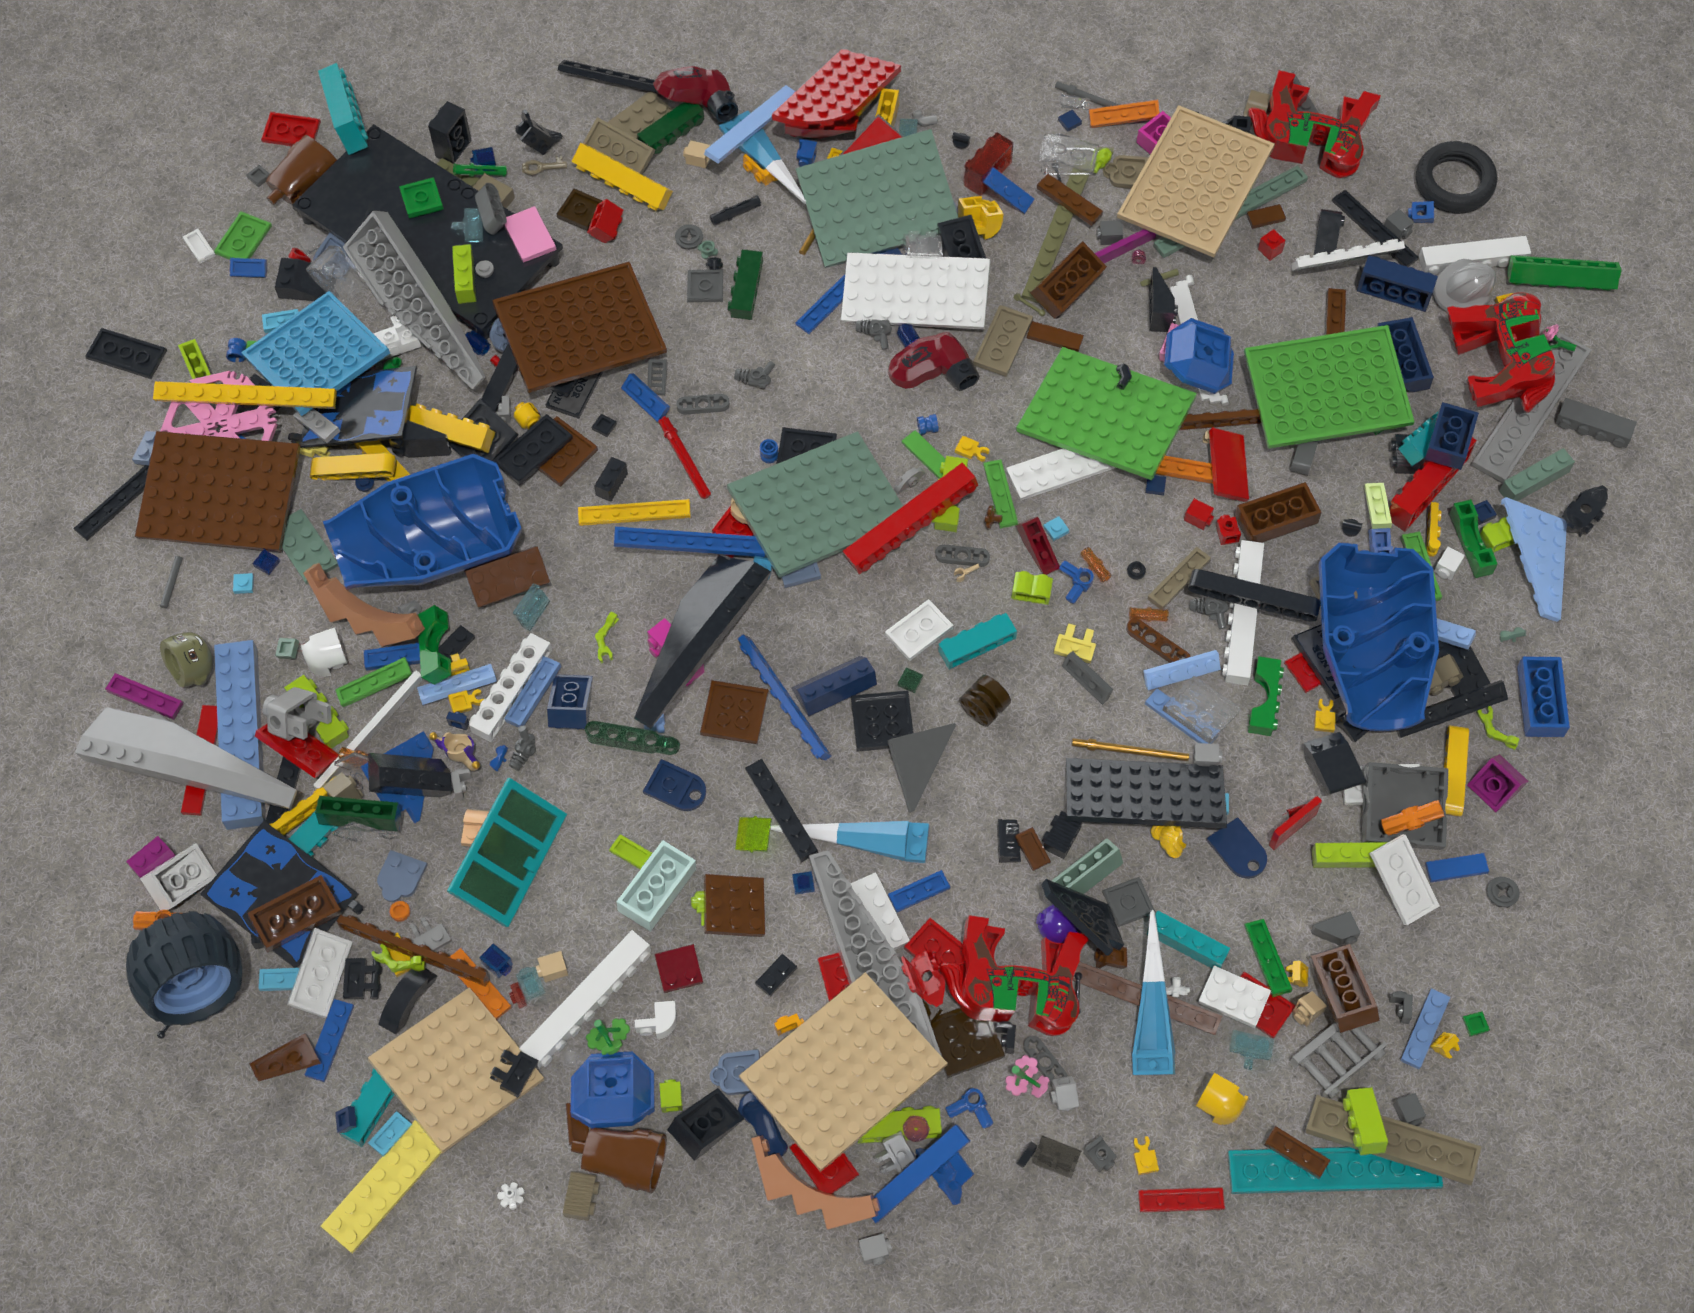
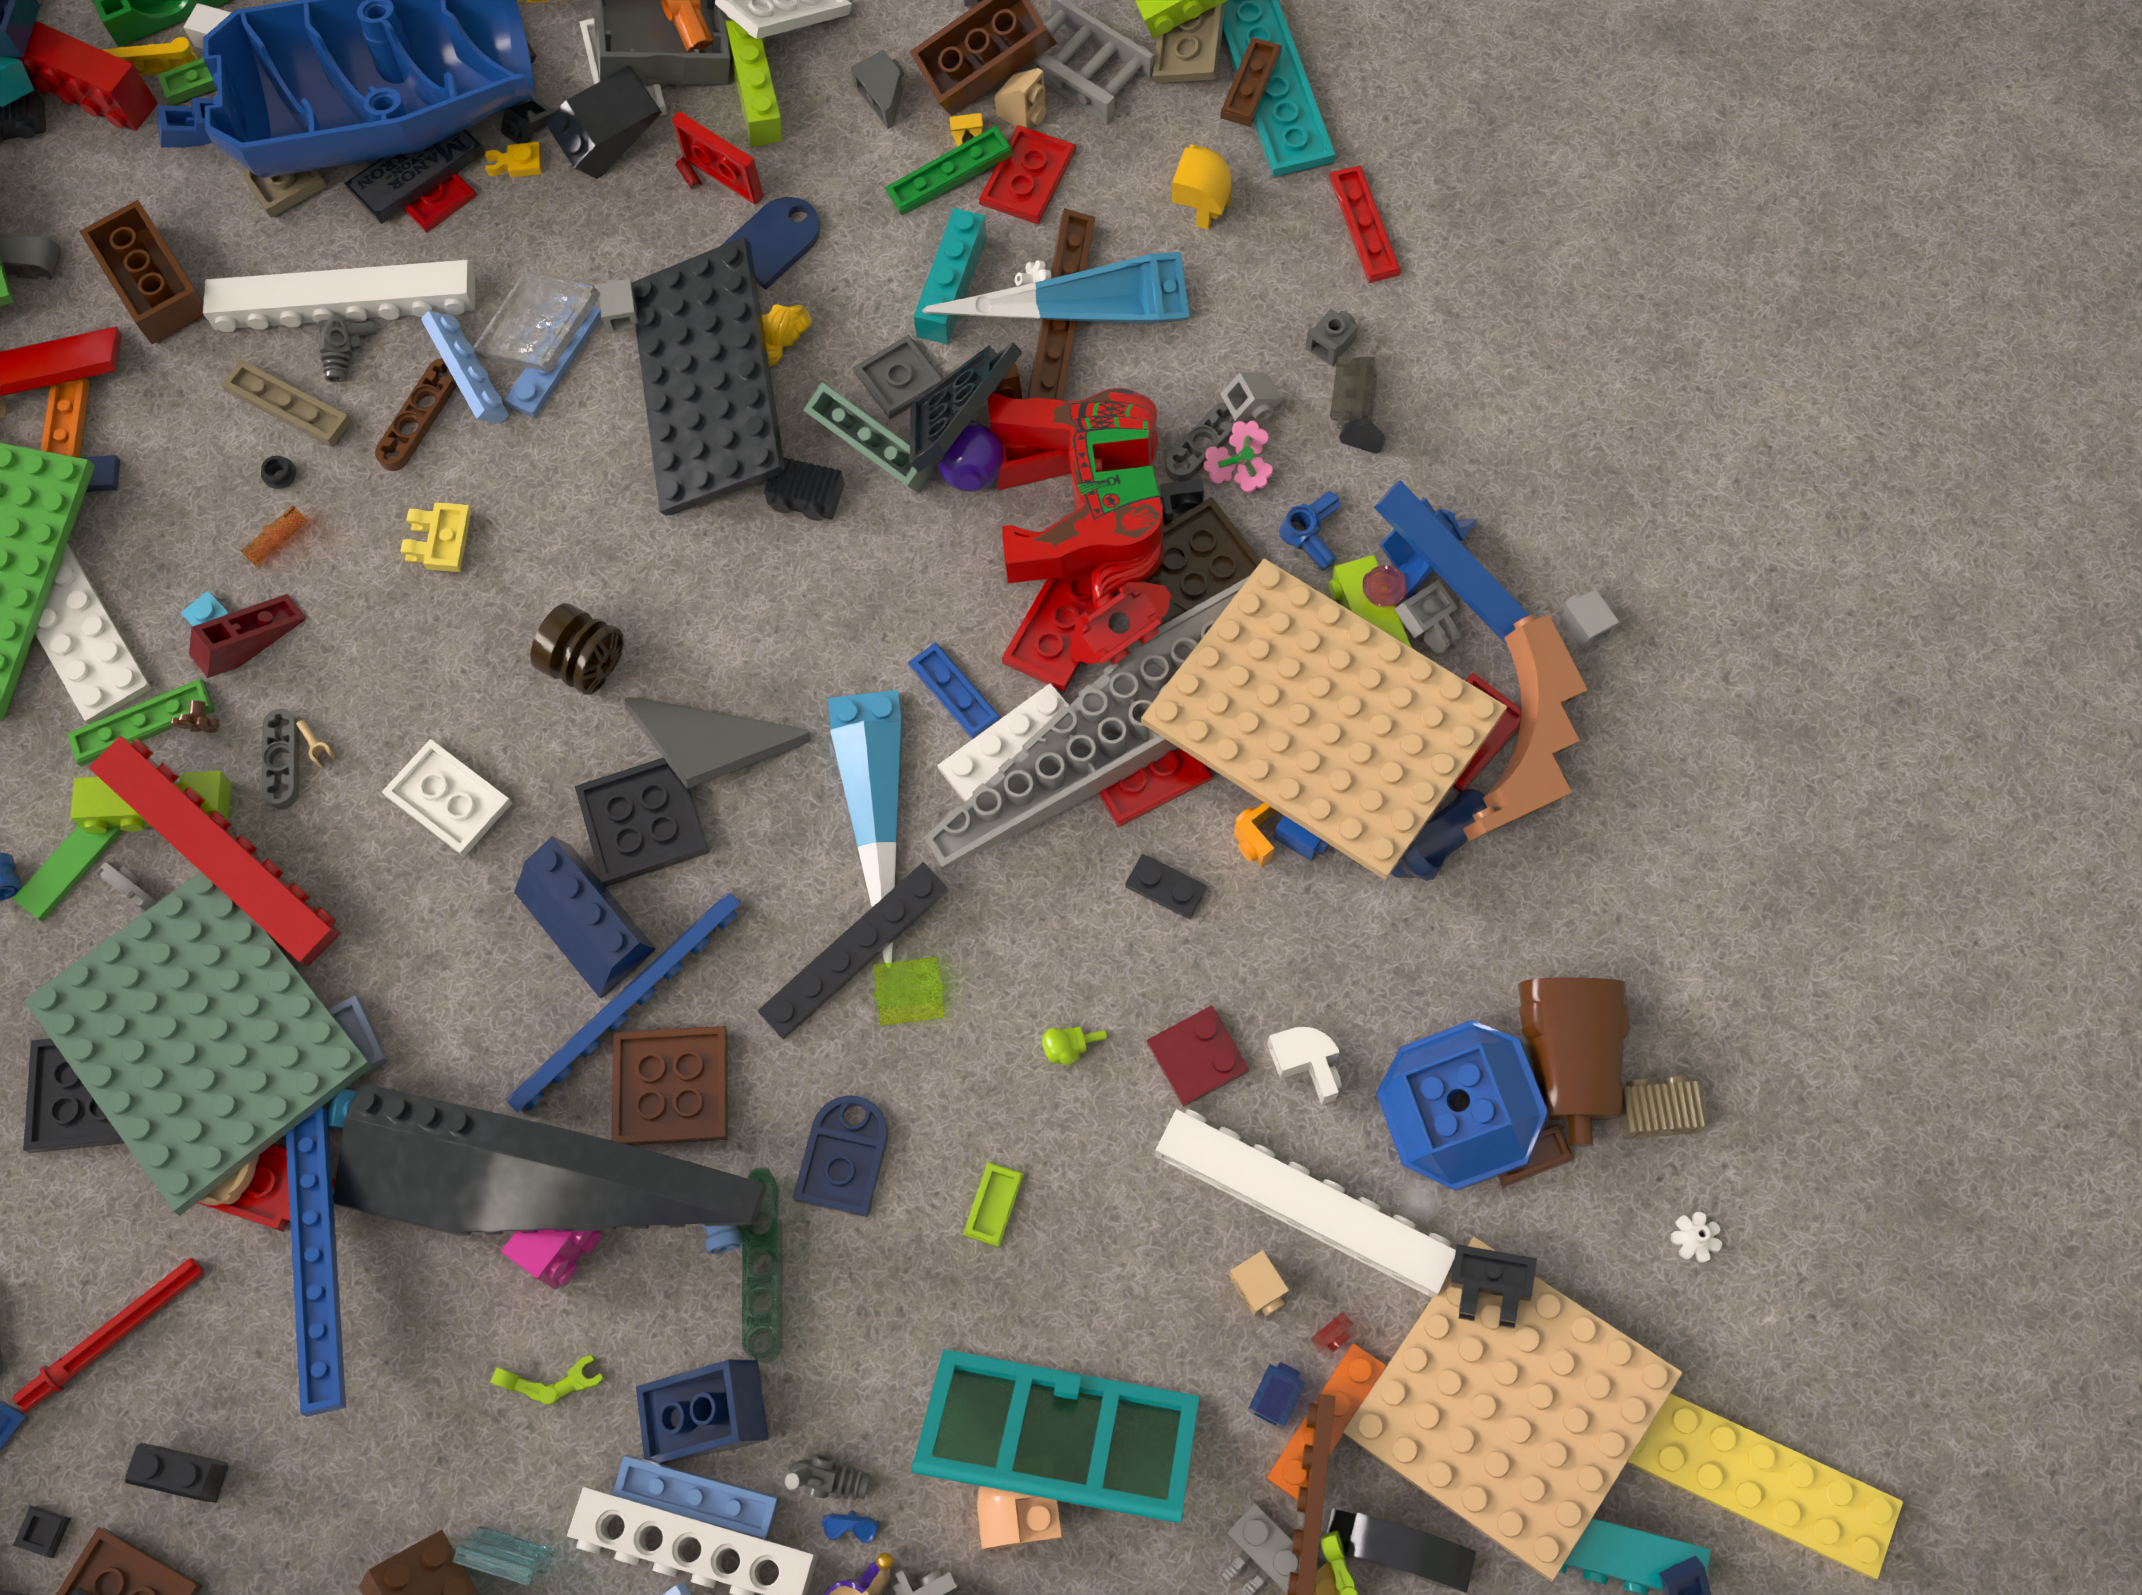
camera: 100 degrees left, 5 degrees up
(389, 1134) = (1665, 1498): medium azure plate -> none
(530, 983) = (1300, 1318): clear light blue bracket -> none
(600, 1040) = (1381, 1128): bright green plant -> none
(634, 512) = (250, 1408): yellow tile -> none
(656, 885) = (1054, 1131): light aqua brick -> none
(671, 1096) = (1437, 1002): lime brick -> none
(705, 1123) = (1468, 932): black slope -> none
(729, 1069) = (1359, 906): sand blue plate -> none
(734, 905) = (1058, 985): reddish brown plate -> none
(768, 456) = (90, 1167): blue wheel -> none
(803, 882) = (983, 882): clear blue plate -> none
(910, 680) = (552, 790): clear green plate -> none
(969, 448) = (47, 797): yellow plate -> none
(977, 641) = (456, 693): teal brick -> none
(1007, 845) = (833, 571): black hinge -> none
(1032, 587) = (334, 626): lime brick -> none
(1032, 849) = (838, 530): reddish brown tile -> none
(1076, 574) = (300, 559): blue axle -> none
(1087, 677) = (501, 505): dark grey plate -> none
(1092, 744) = (626, 475): pearl gold bar -> none
(1145, 1159) = (1317, 278): yellow plate -> none
(1148, 614) = (363, 437): clear orange pin -> none
(1199, 514) = (155, 392): red brick -> none
(1228, 530) = (181, 345): red brick -> none
(1234, 996) = (1026, 201): white plate -> none
(1251, 1047) = (1098, 172): clear light blue plate -> none
(1254, 595) = (311, 272): black beam -> none
(1267, 674) = (535, 236): green arch -> none
(1351, 527) = (157, 172): black plate -> none
(1378, 505) = (113, 135): yellowish green plate -> none

